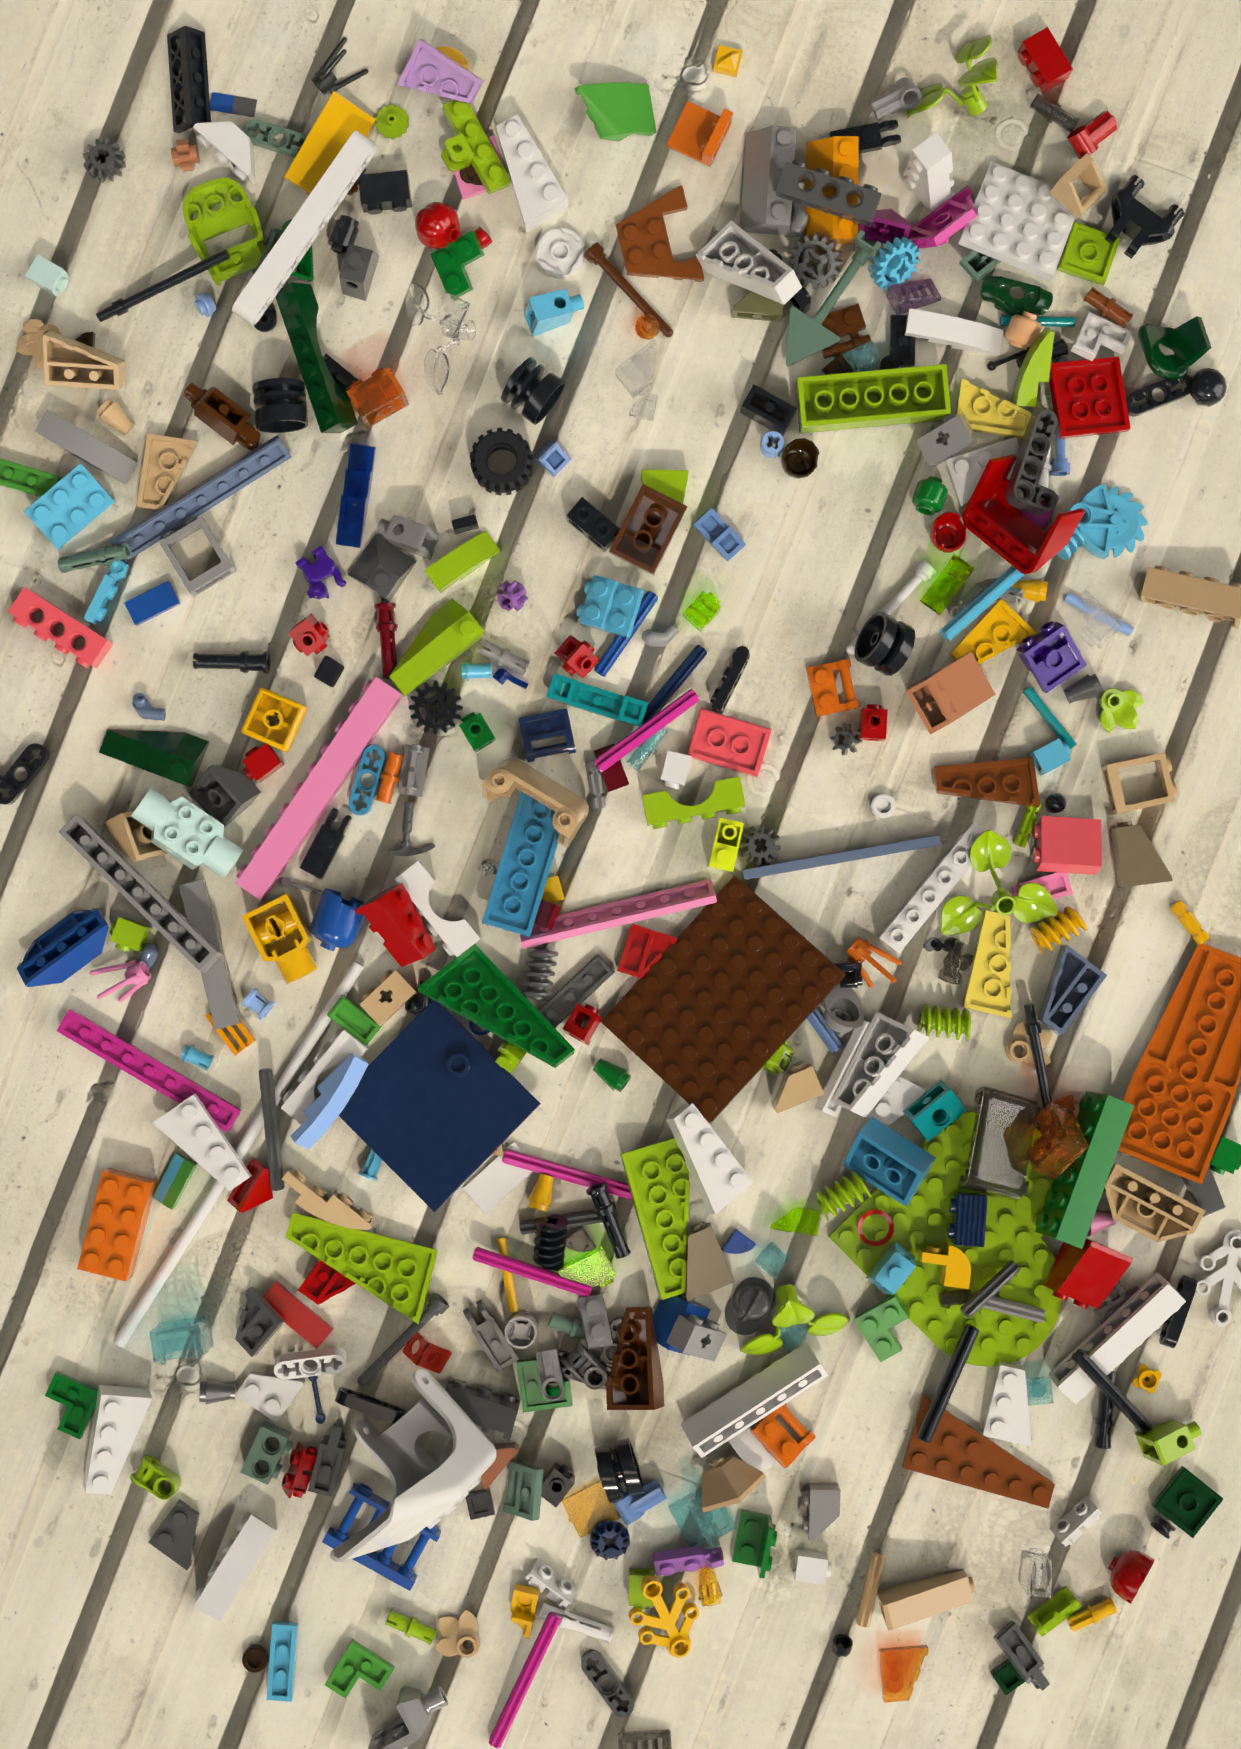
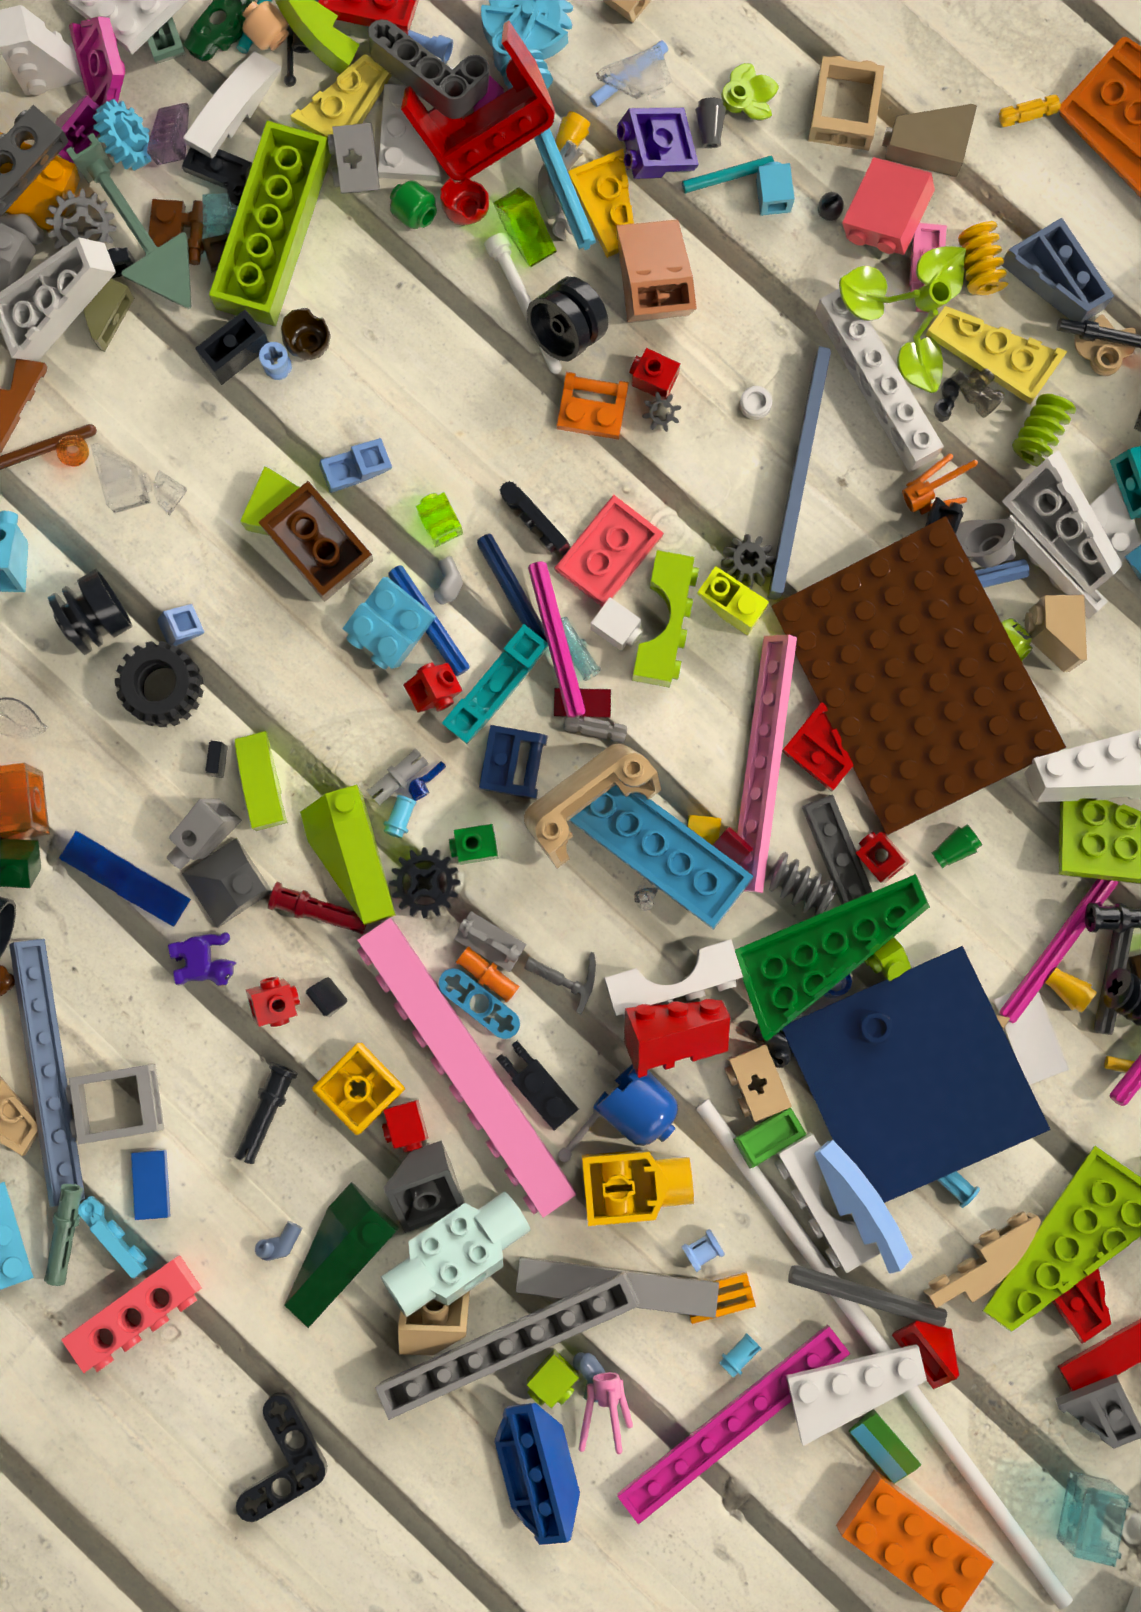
camera: 70 degrees left, 5 degrees down
(511, 595) = (326, 737): medium lavender gear -> none
(593, 524) = (281, 606): black brick -> none
(996, 781) = (778, 262): dark orange wing -> none
(1026, 826) = (841, 245): lime axle -> none

